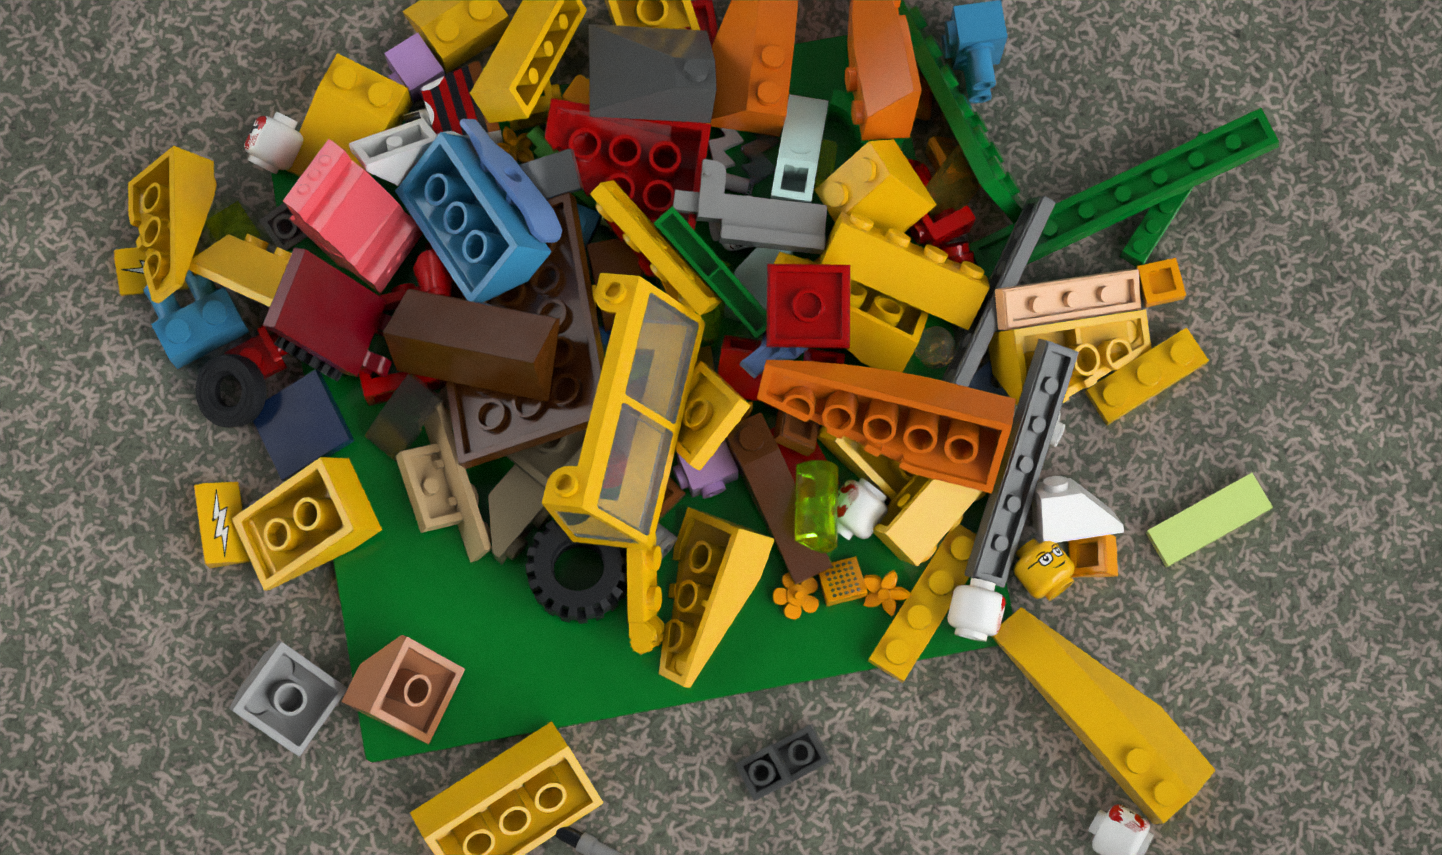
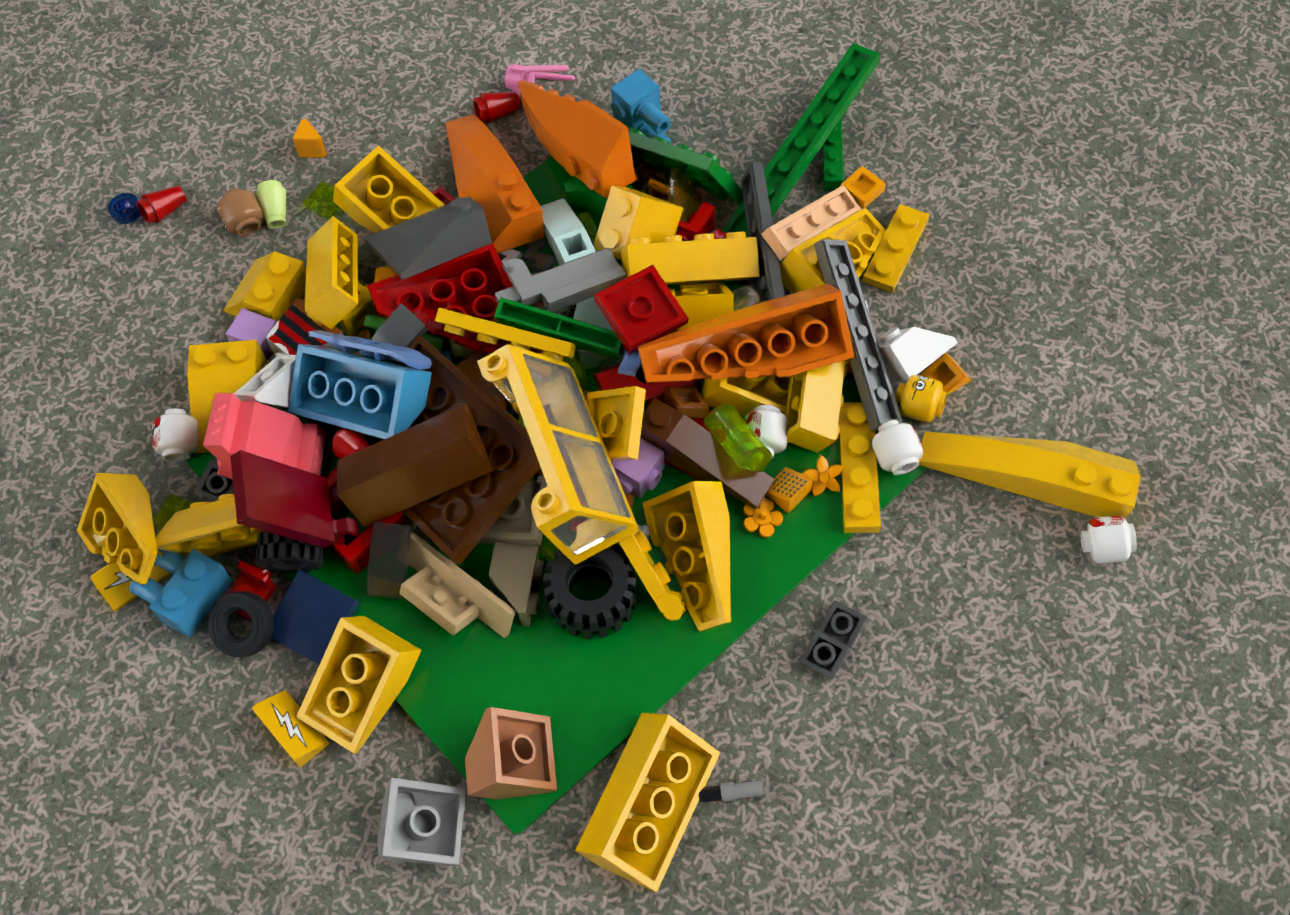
camera: 25 degrees left, 15 degrees down
(1209, 520) = (1004, 309): yellowish green tile -> none

